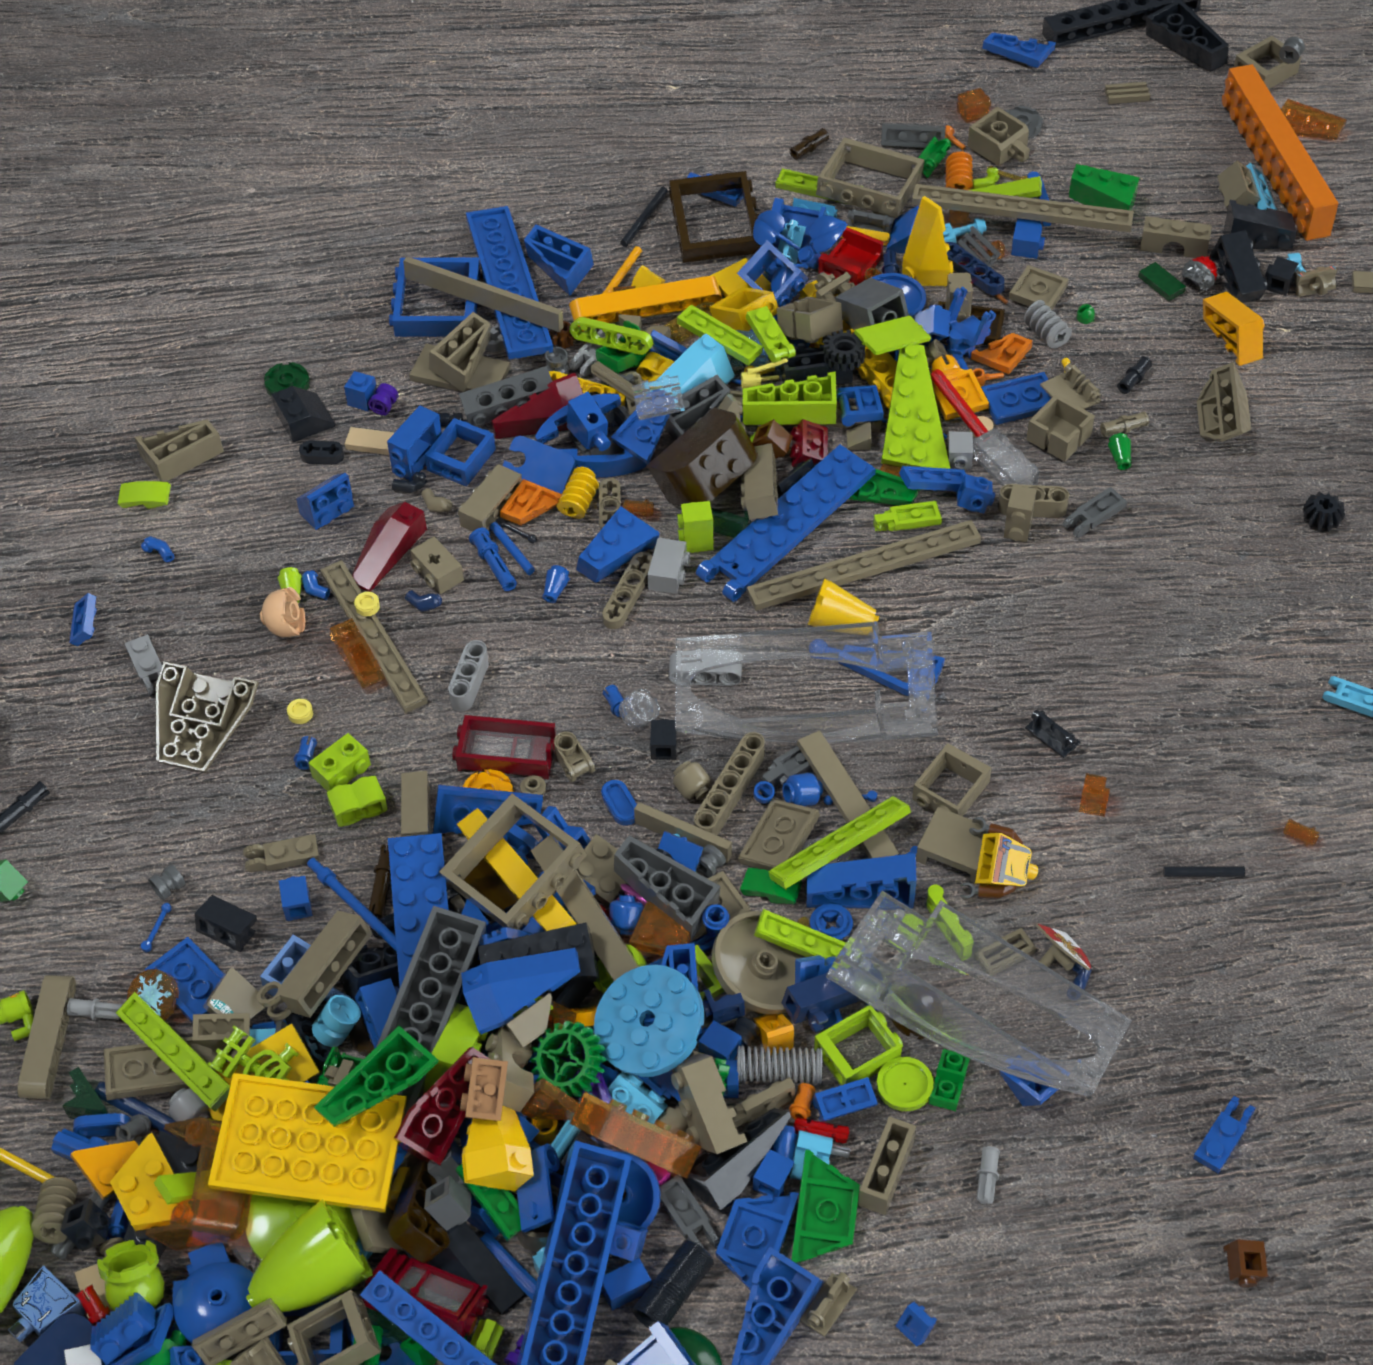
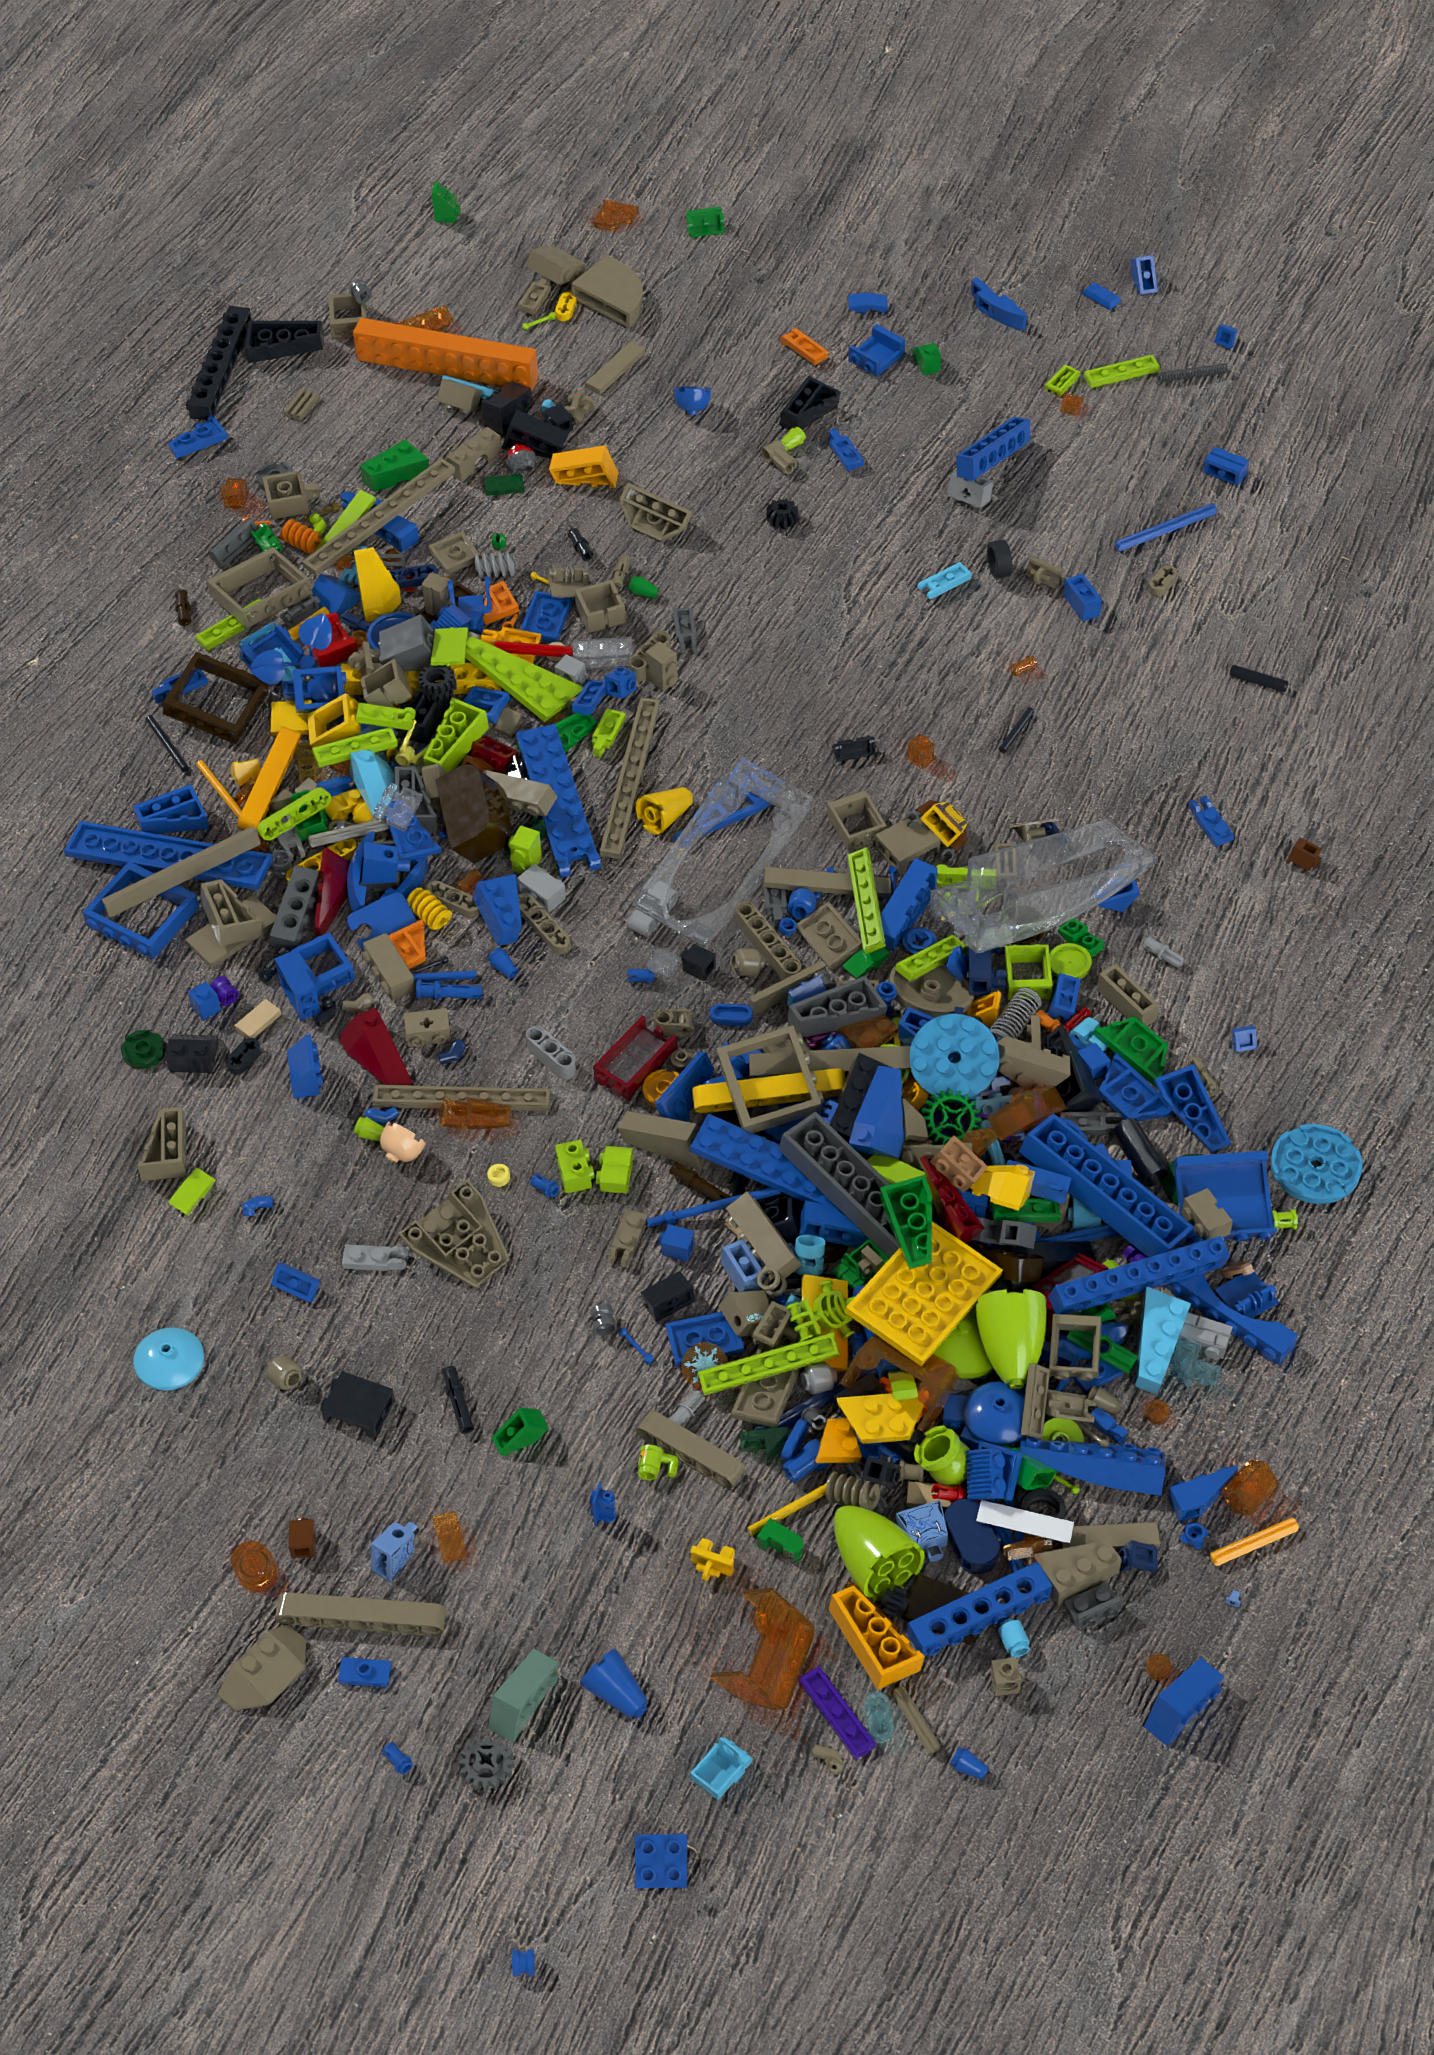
camera: 60 degrees left, 0 degrees up
(367, 604) = (434, 1085): light yellow tile -> none

